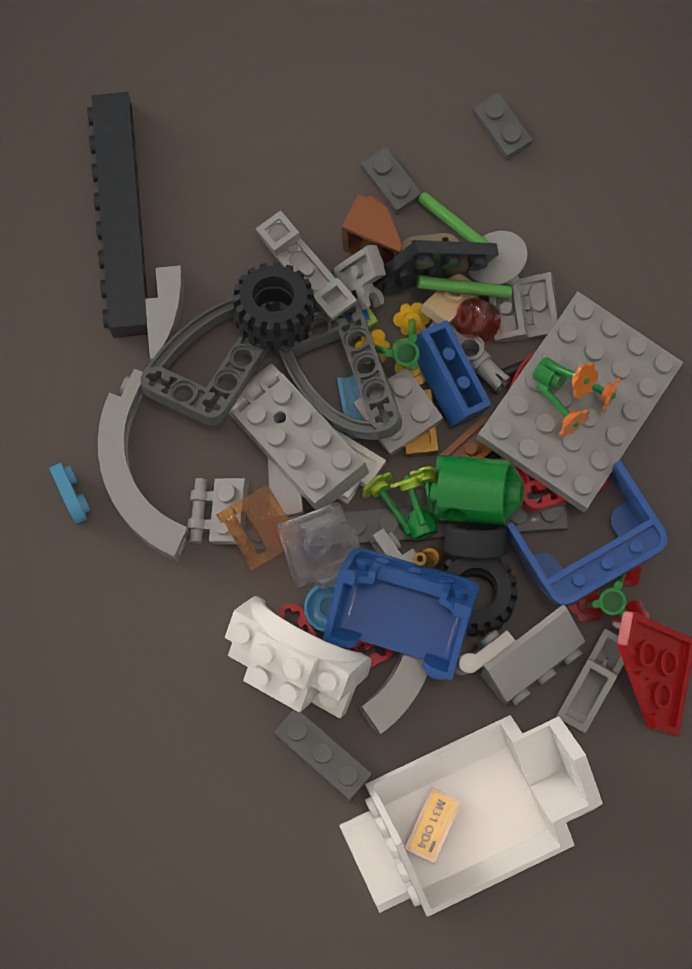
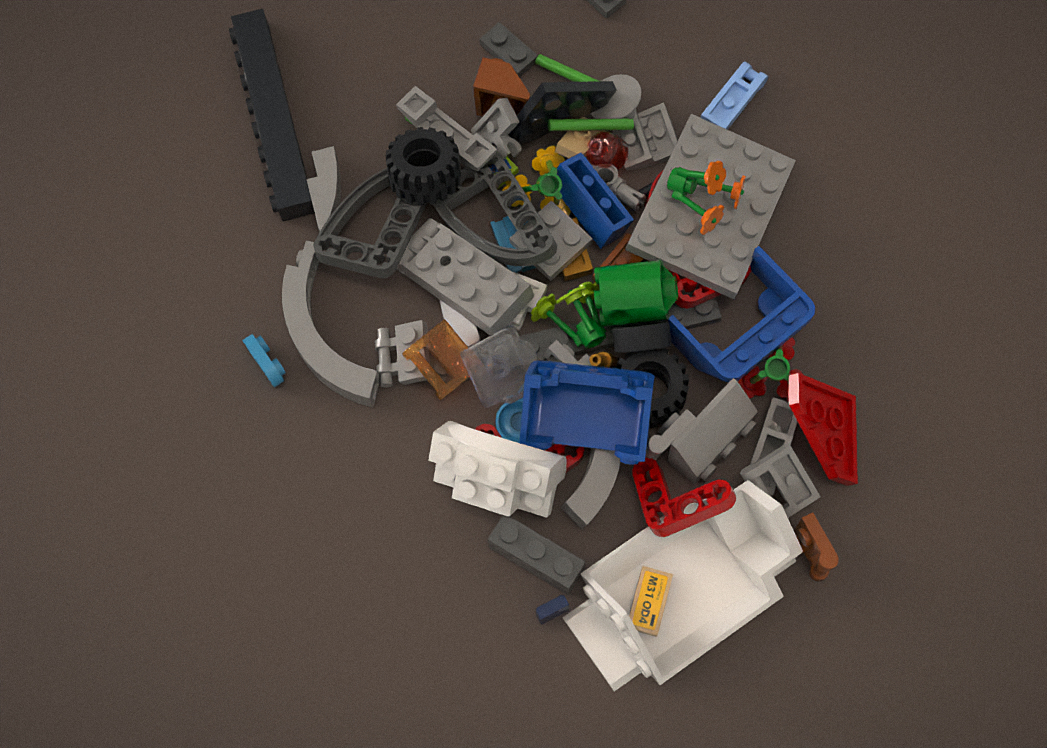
camera: 10 degrees left, 5 degrees down
(329, 816) = (552, 609): none -> dark blue tile
(475, 733) = (673, 509): none -> red beam
(604, 719) = (788, 477): none -> light grey plate
(615, 791) = (816, 547): none -> dark orange plate
(629, 277) = (734, 96): none -> light blue plate

